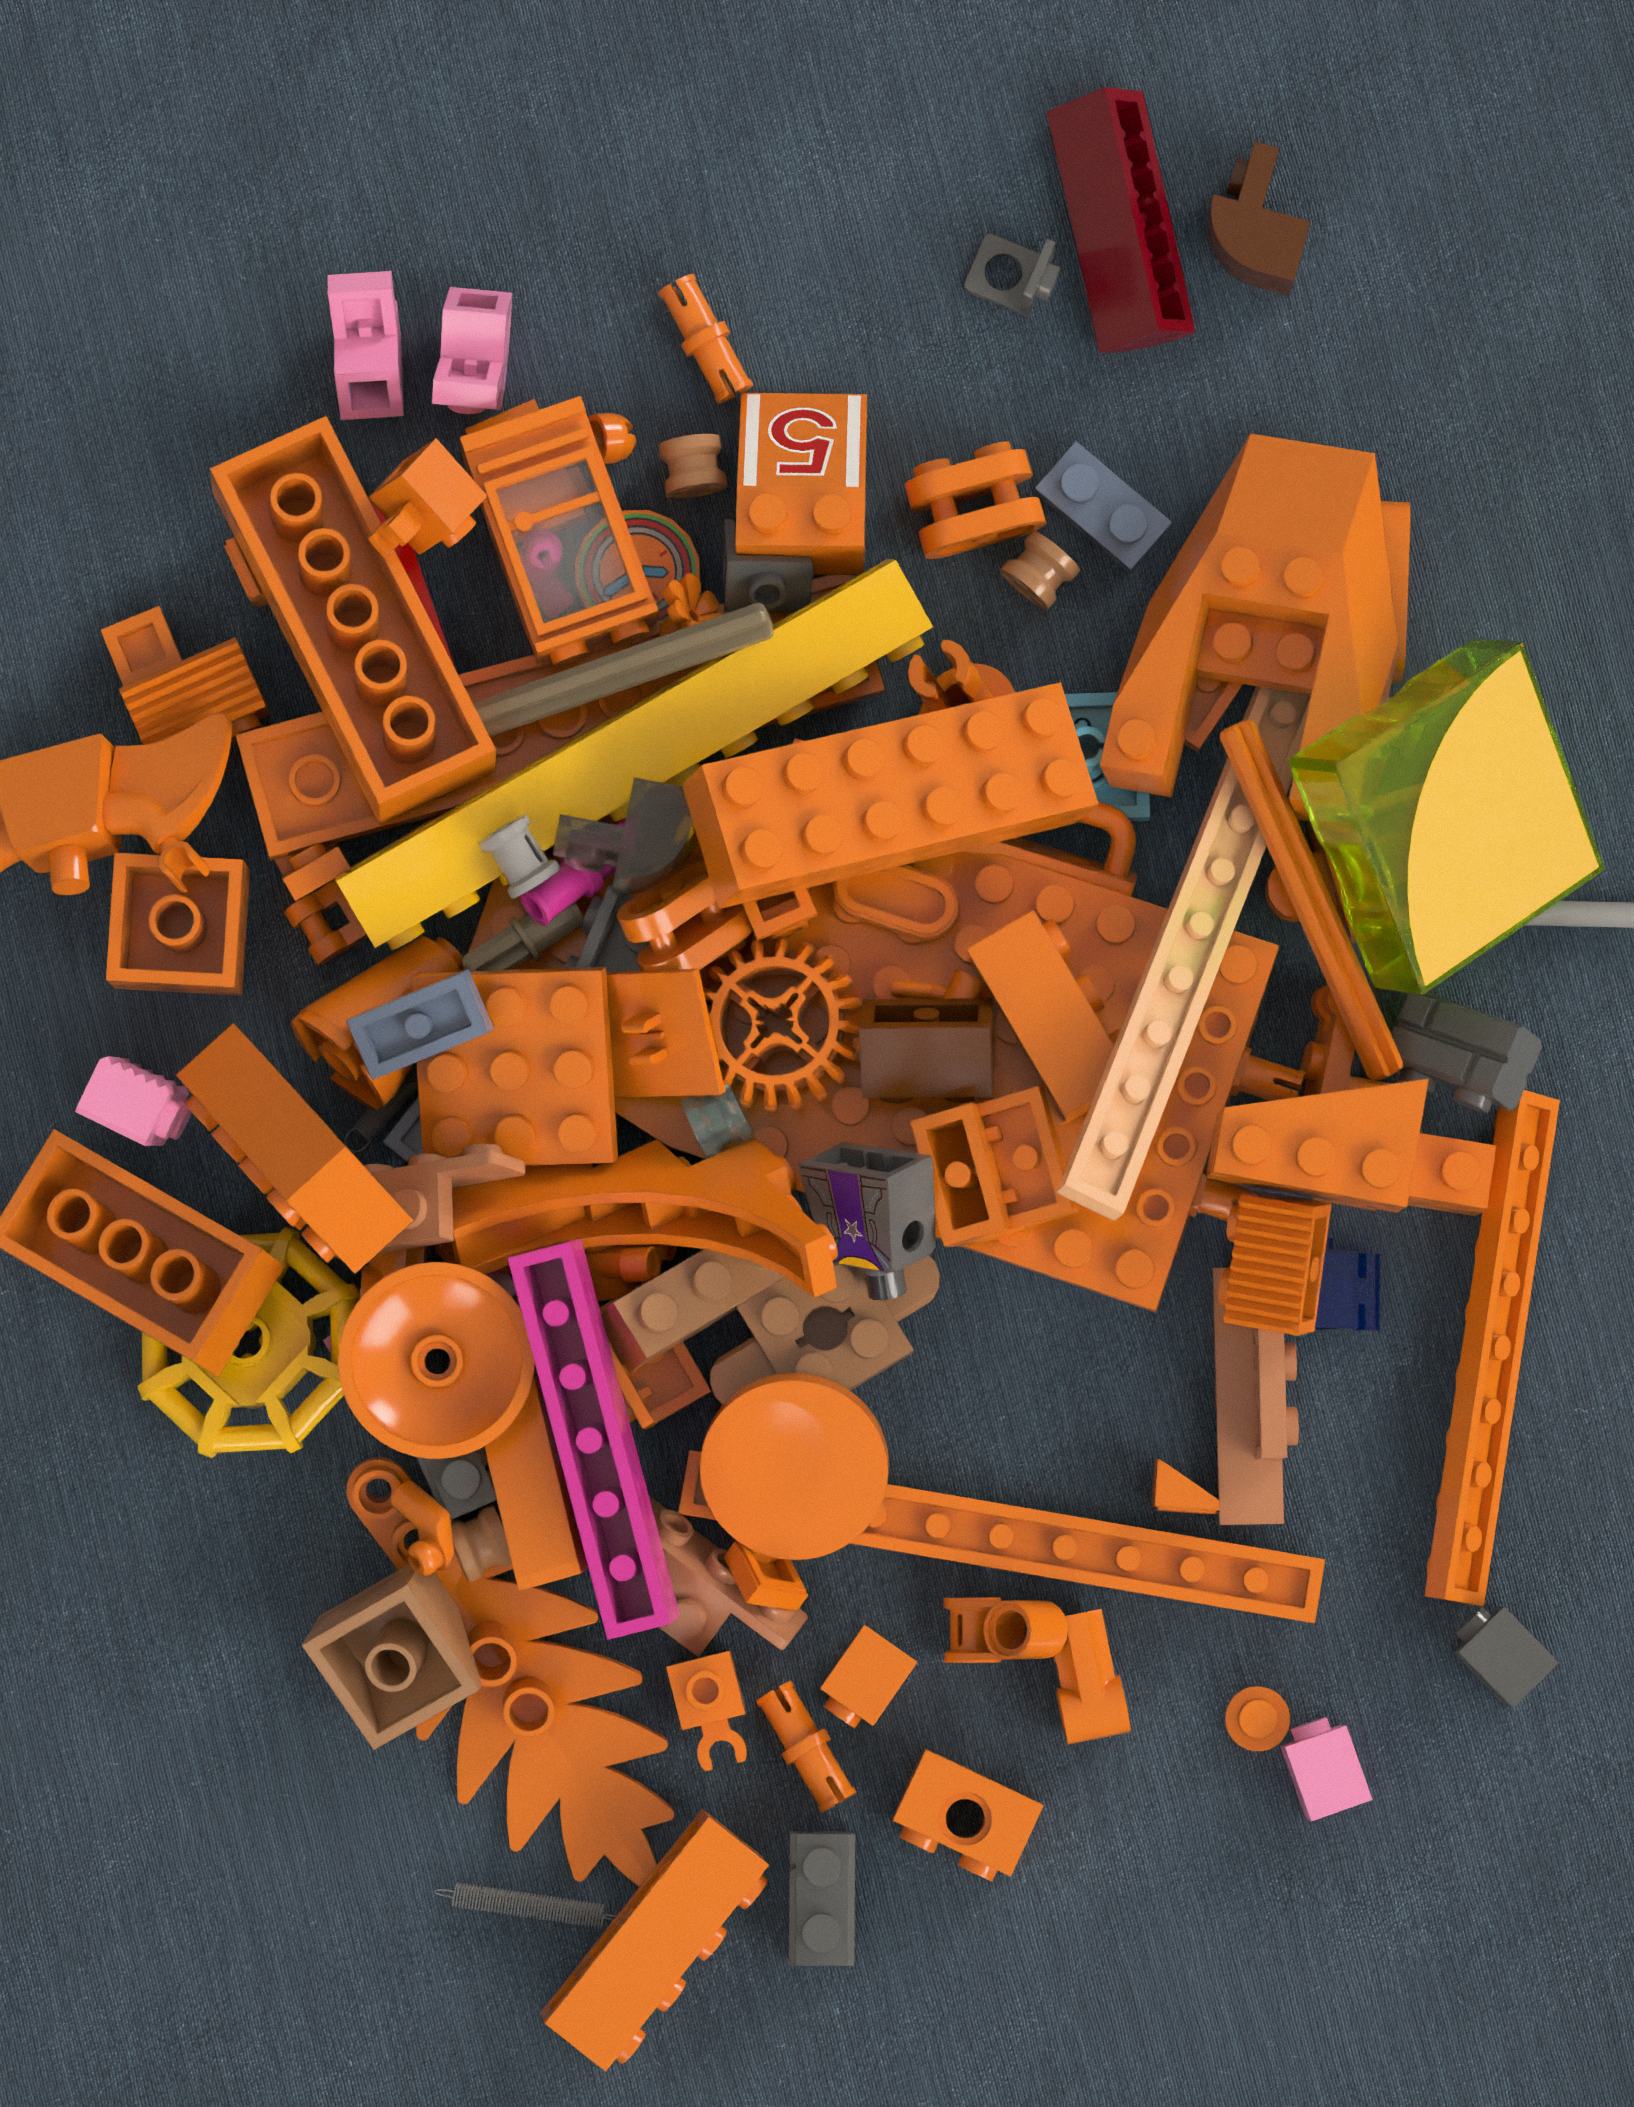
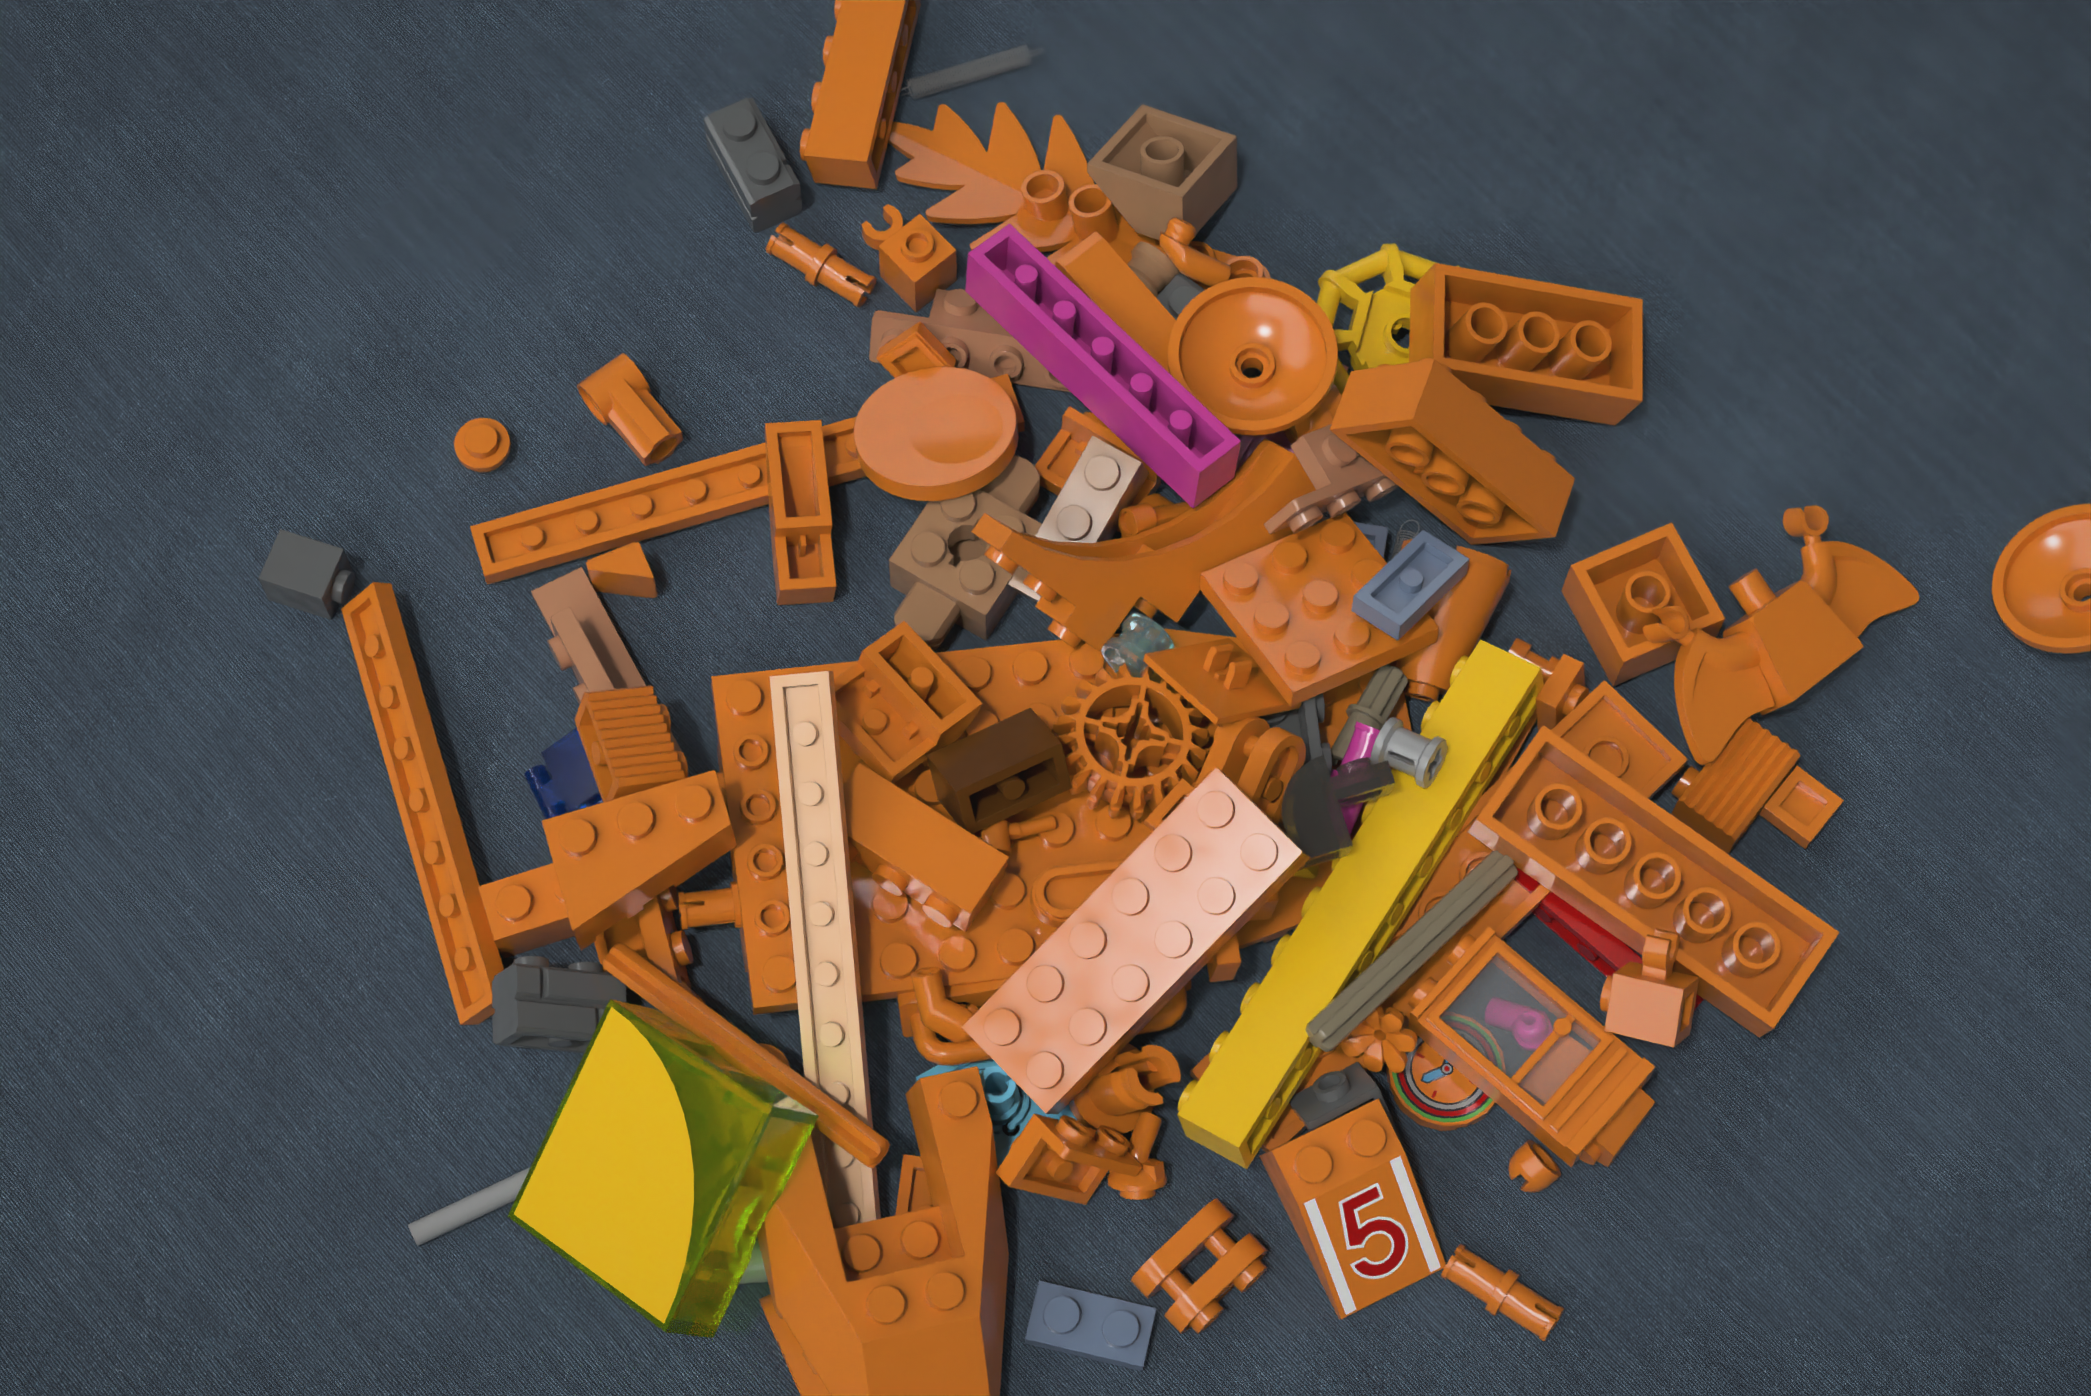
camera: 150 degrees right, 15 degrees down
(135, 1102) = (1598, 450): bright pink brick -> none
(366, 345) = (1772, 1132): bright pink brick -> none
(473, 350) = (1683, 1172): bright pink brick -> none
(692, 466) = (1451, 1176): medium nougat wheel -> none
(866, 1678) = (800, 331): orange brick -> none
(875, 1209) = (978, 627): dark grey torso -> none
(973, 1460) = (799, 512): none -> orange slope
(989, 622) = (1152, 1174): none -> orange plate
(994, 1630) = (714, 406): orange piece -> none
(1006, 1815) = (695, 291): orange brick -> none
(1040, 570) = (1114, 1237): medium nougat wheel -> none
(1051, 649) = (1065, 1158): none -> orange bracket
(1104, 856) = (935, 1010): none -> orange arm
(1325, 1769) = (409, 428): bright pink brick -> none

